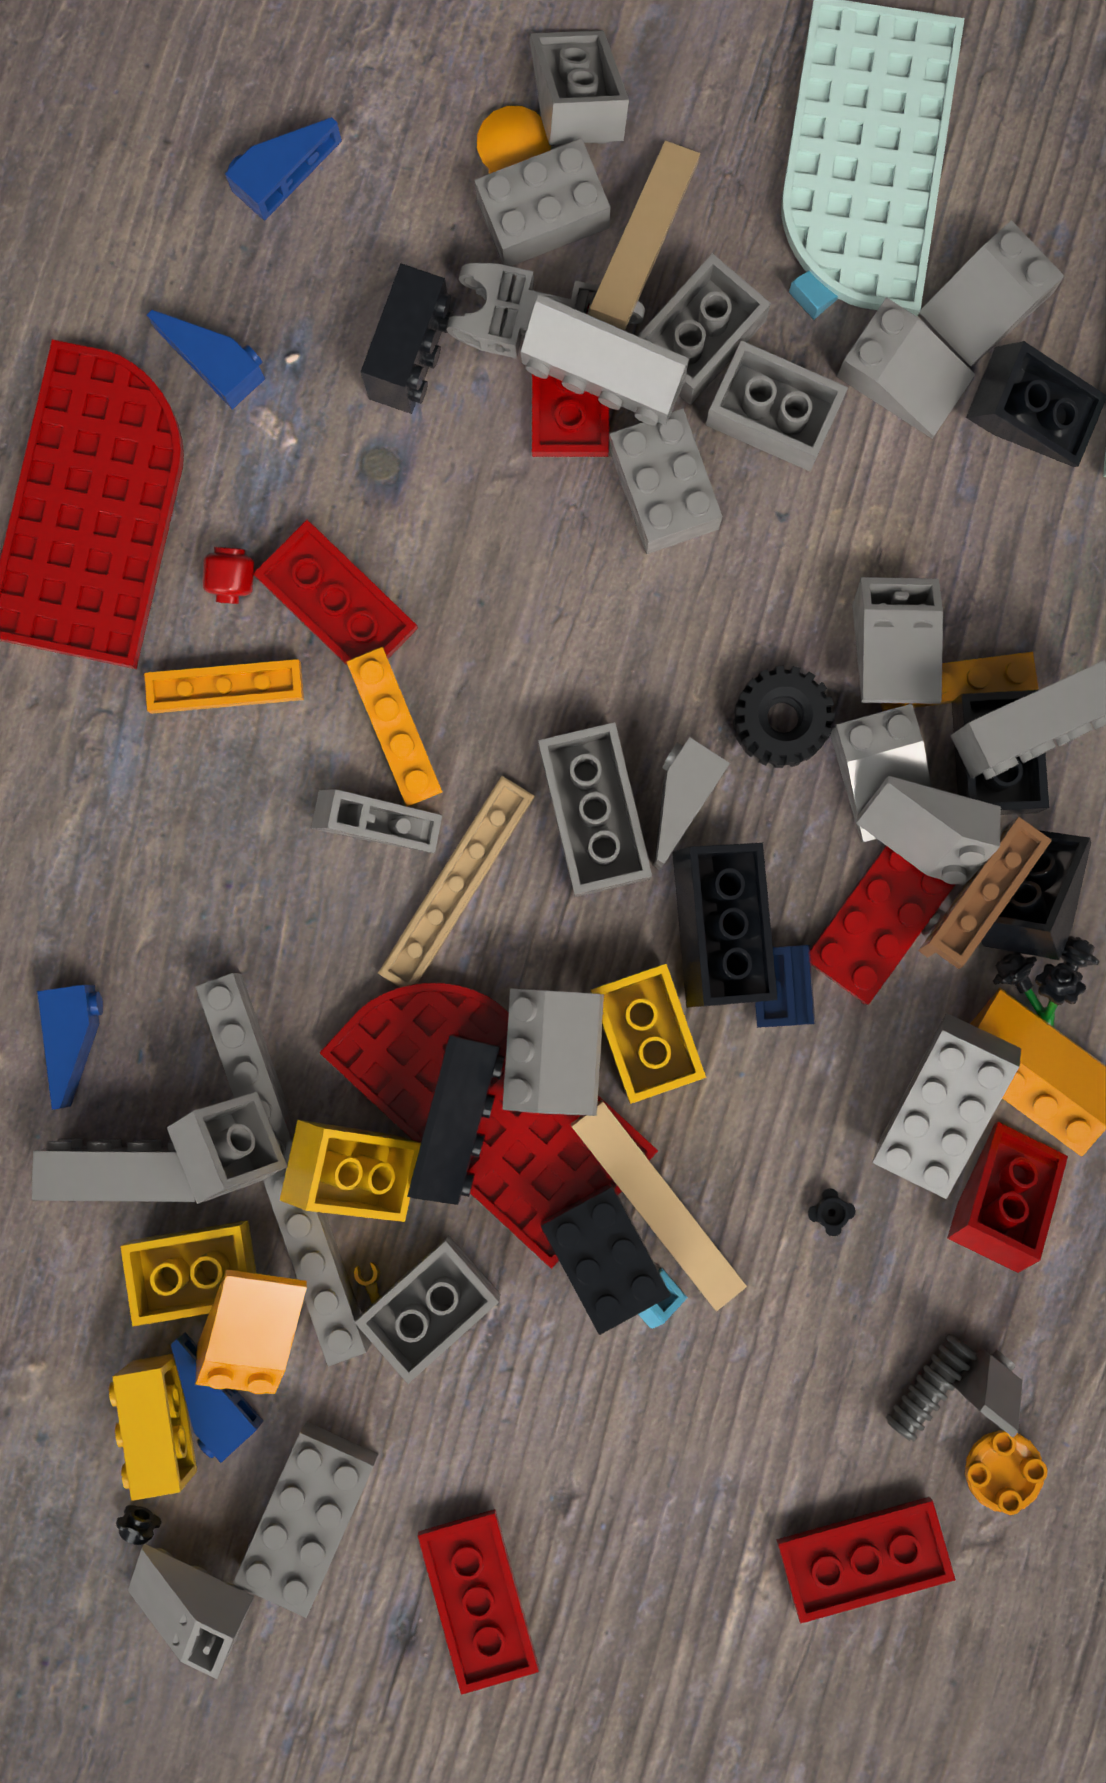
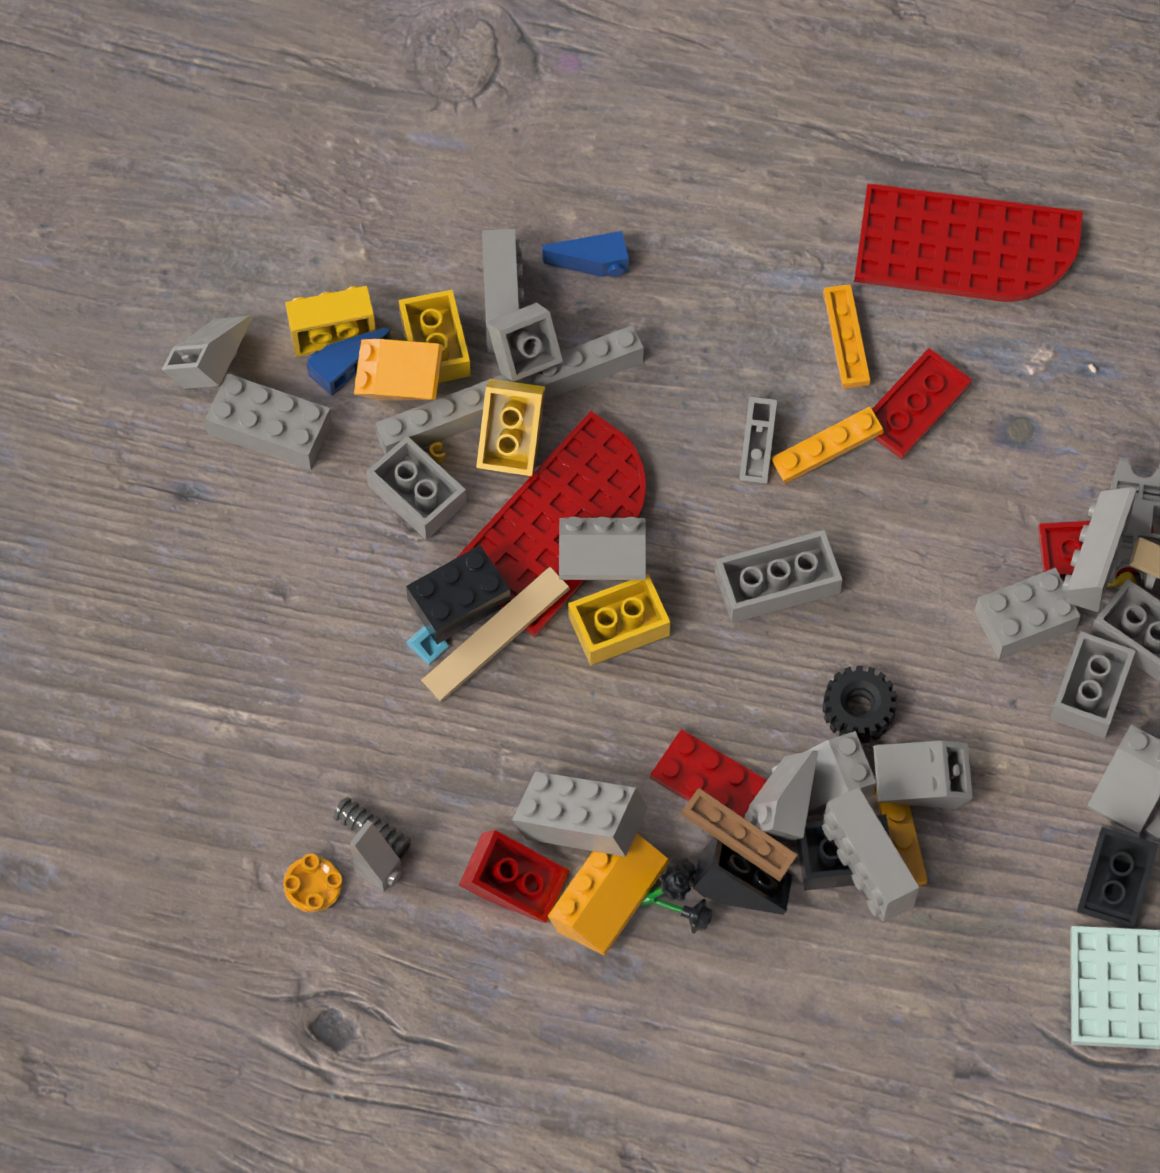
camera: 80 degrees right, 20 degrees down
(137, 1524) = (261, 319): black plate -> none
(215, 357) = (1078, 318): blue slope -> none
(228, 574) = (926, 332): red head -> none
(407, 339) = (1109, 431): black brick -> none
(454, 1121) = (549, 487): black slope -> none
(456, 884) = (718, 496): tan tile -> none
(478, 1601) = (213, 535): red plate -> none
(687, 785) = (789, 631): light grey slope -> none
(724, 924) = (701, 667): black slope -> none
(793, 987) = (659, 713): dark blue plate -> none
(834, 1223) = (495, 748): black plate -> none
(865, 1559) = (247, 789): red plate -> none

